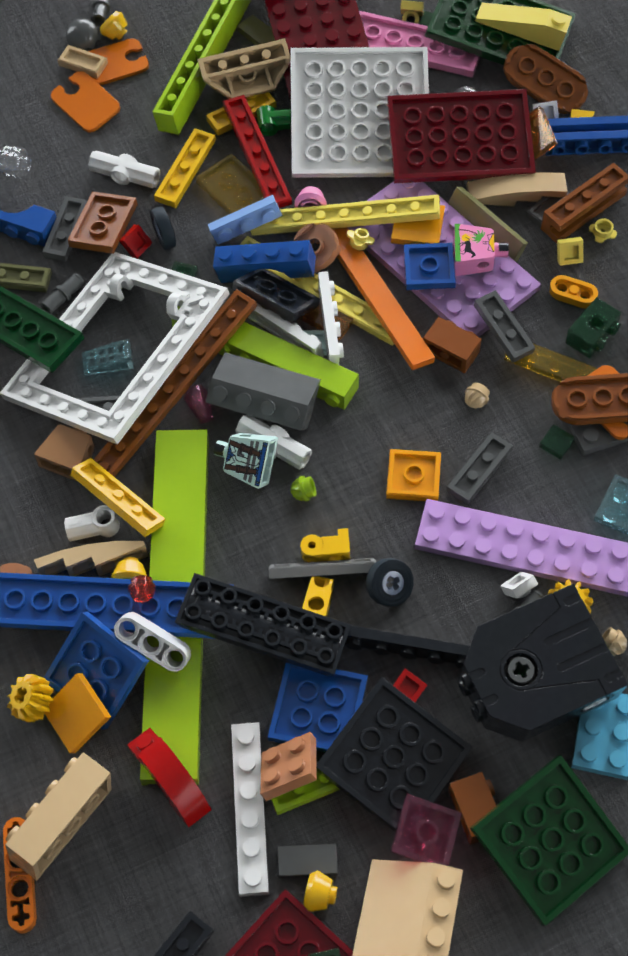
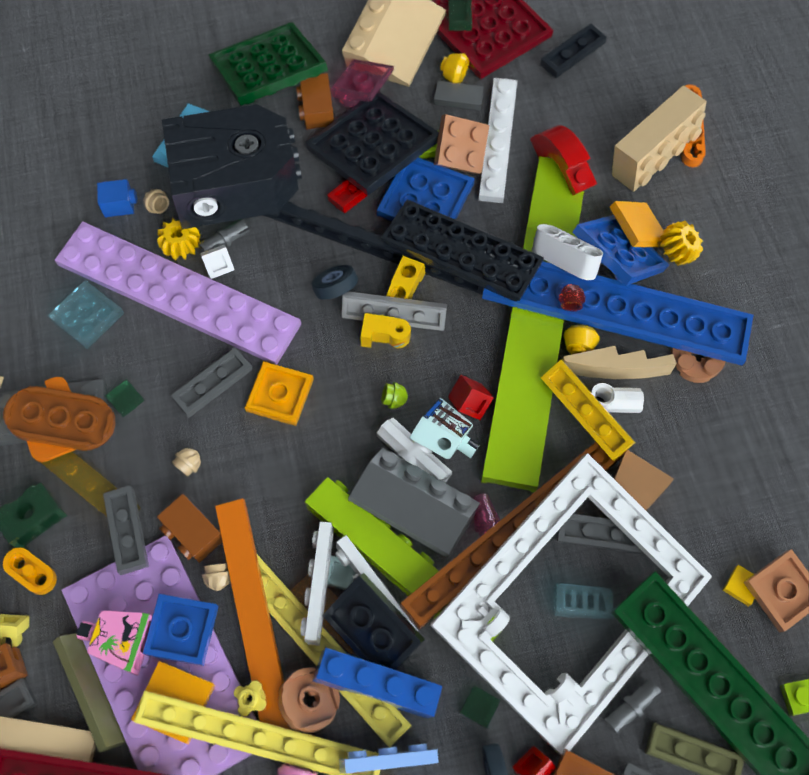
camera: 170 degrees left, 5 degrees up
(230, 501) = (470, 397): none -> red panel
(419, 316) = (216, 576): none -> tan plate

